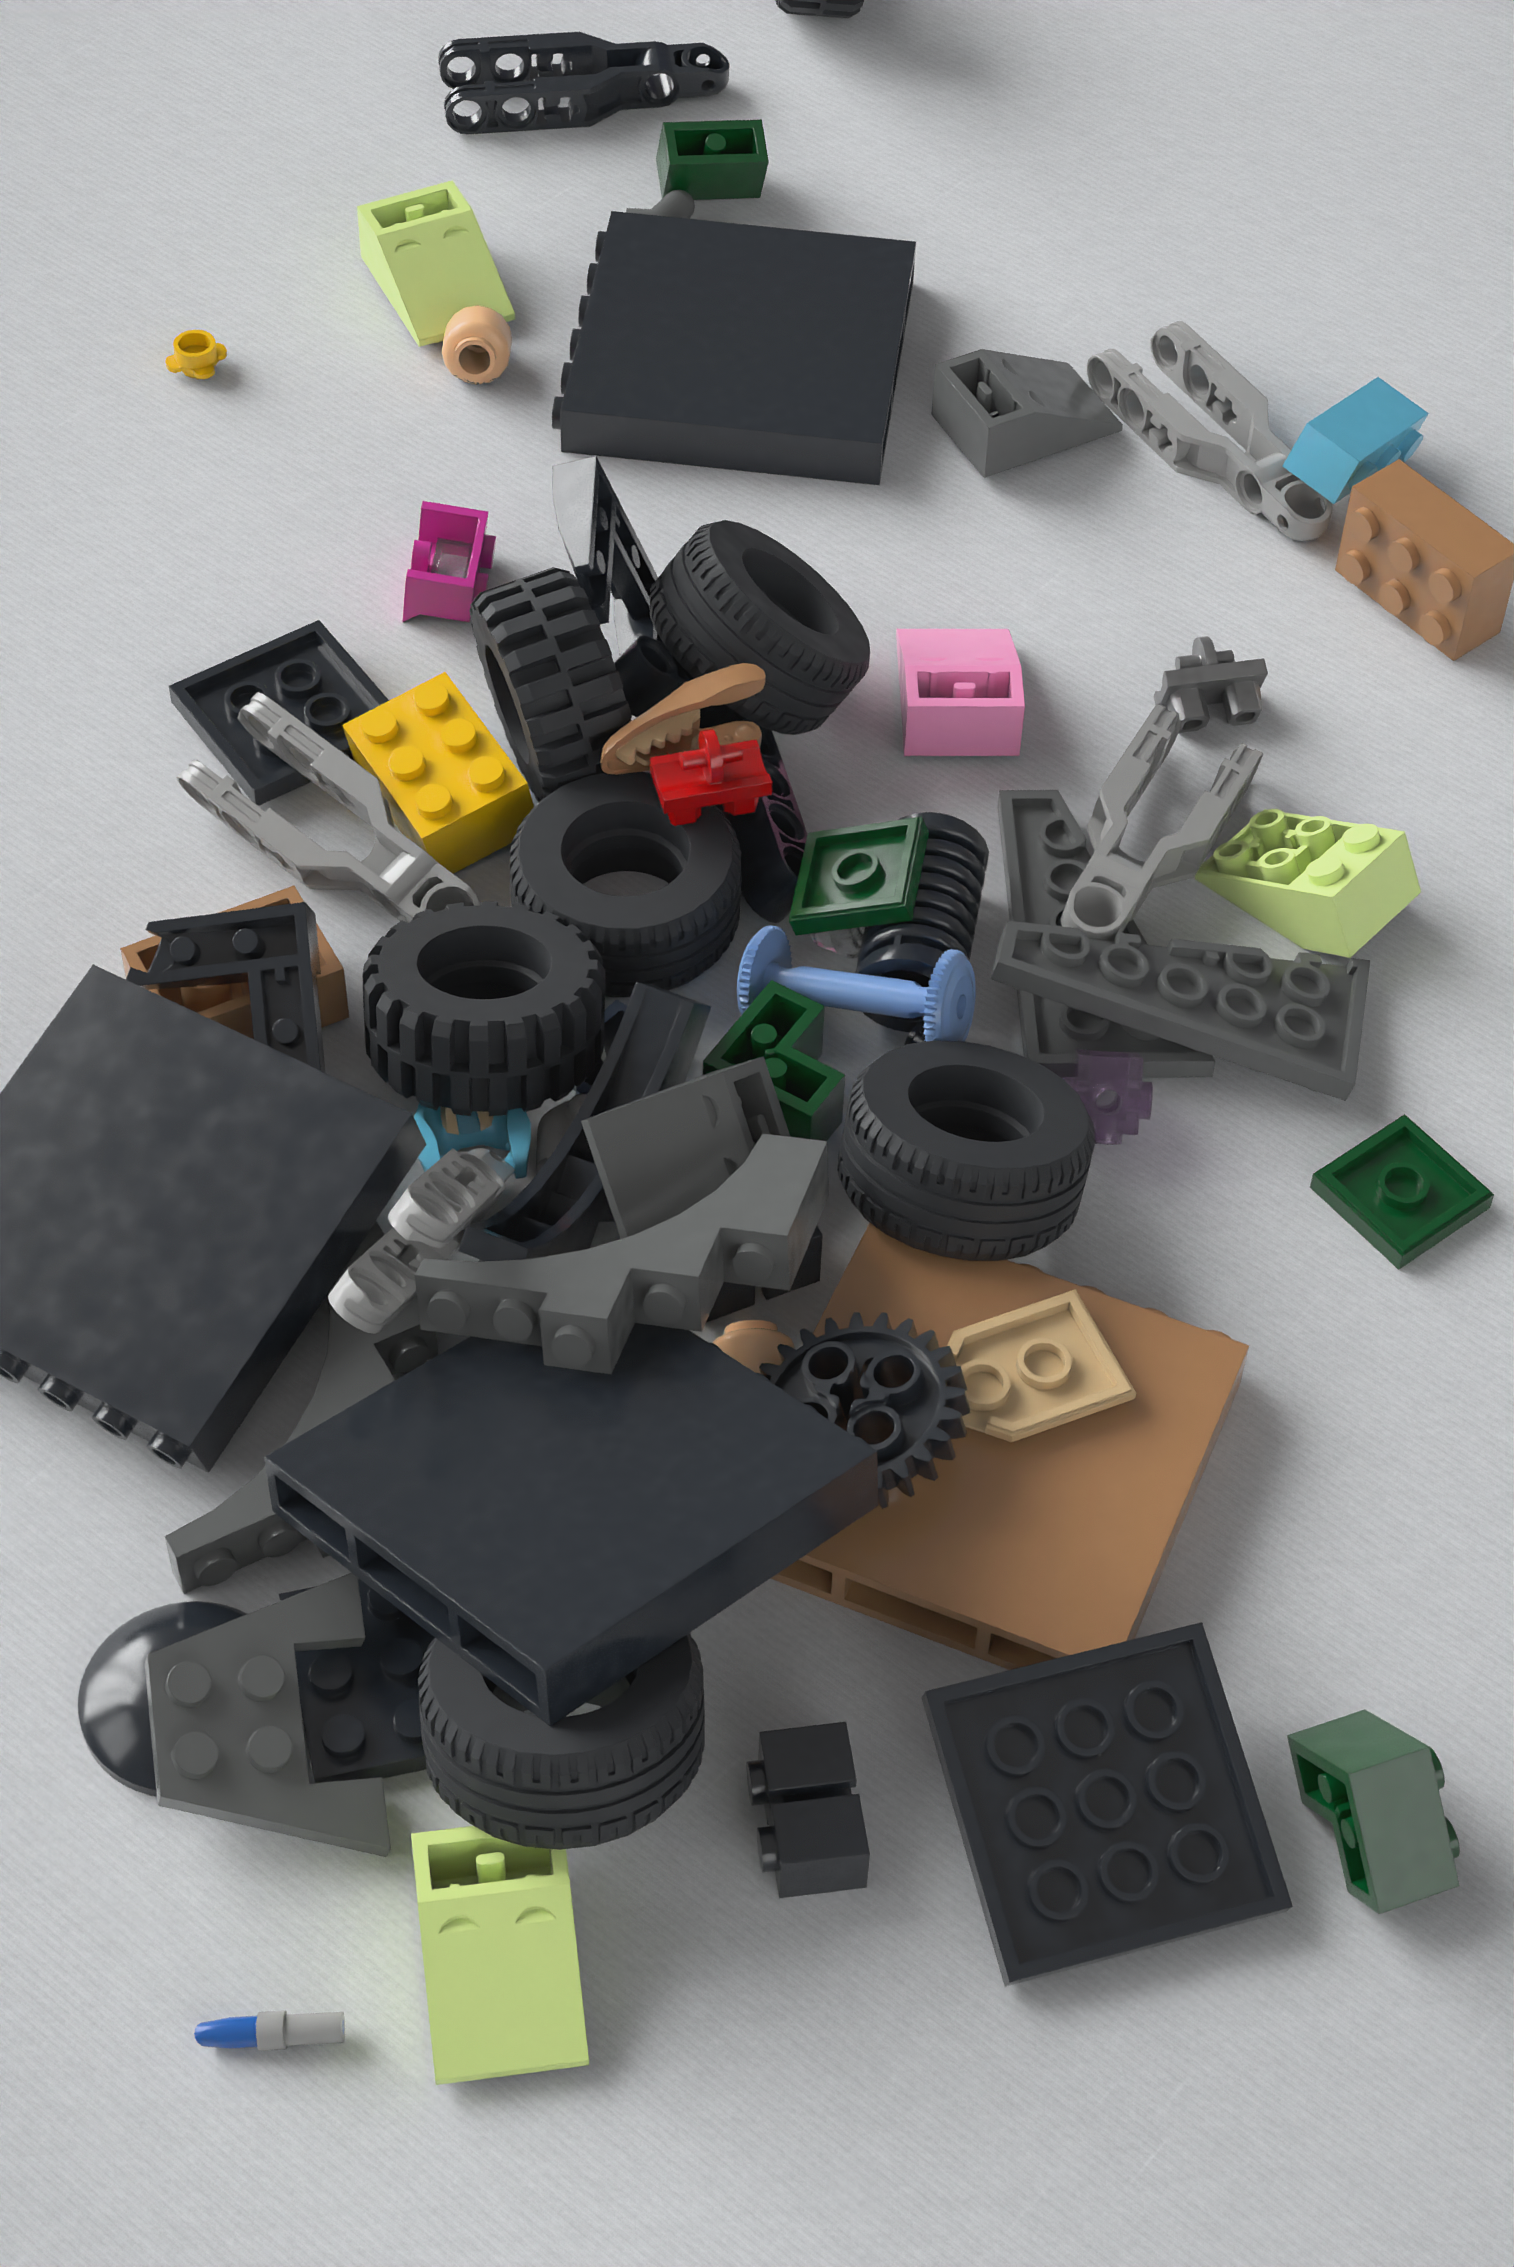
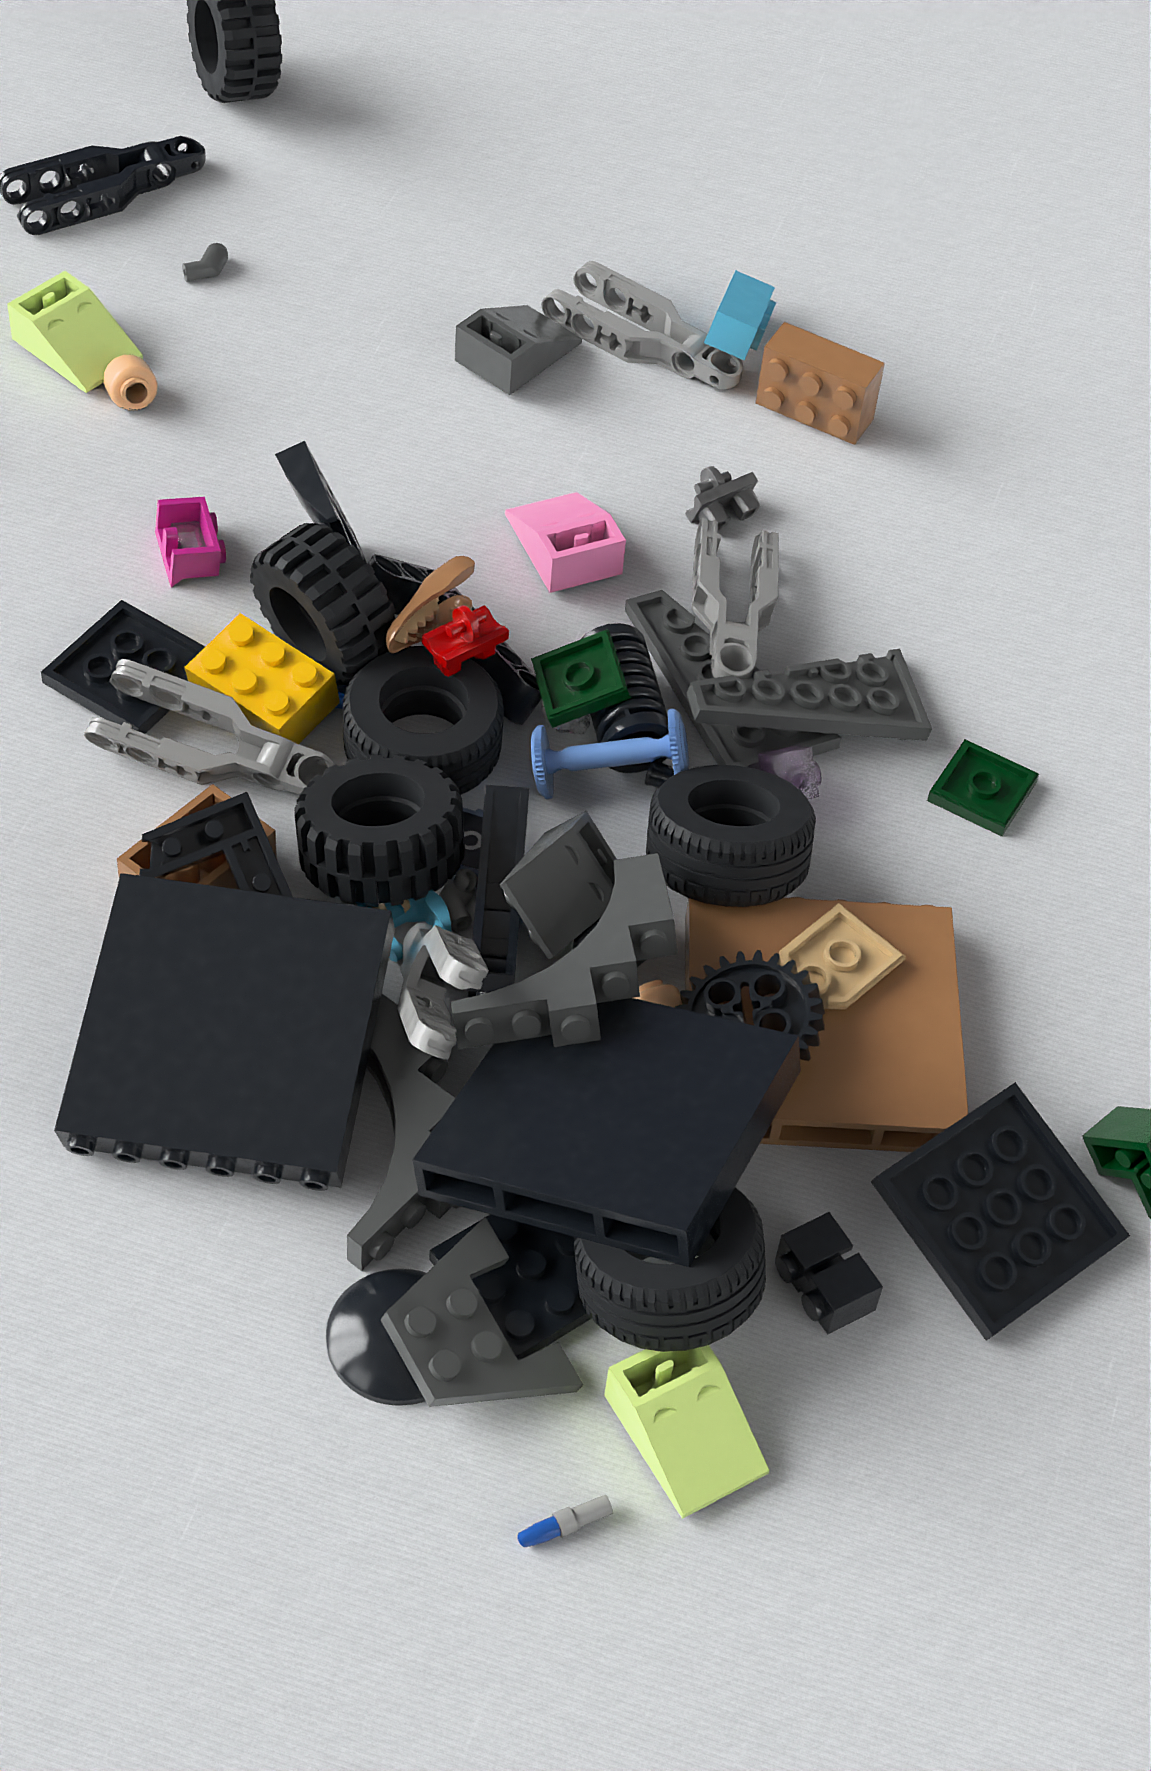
camera: 25 degrees left, 0 degrees up
(713, 158) = (229, 216): dark green brick -> none
(737, 348) = (308, 344): black brick -> none
(755, 602) = (428, 521): black tyre -> none
(790, 1037) = (574, 792): dark green brick -> none
(1315, 878) = (843, 605): yellowish green slope -> none

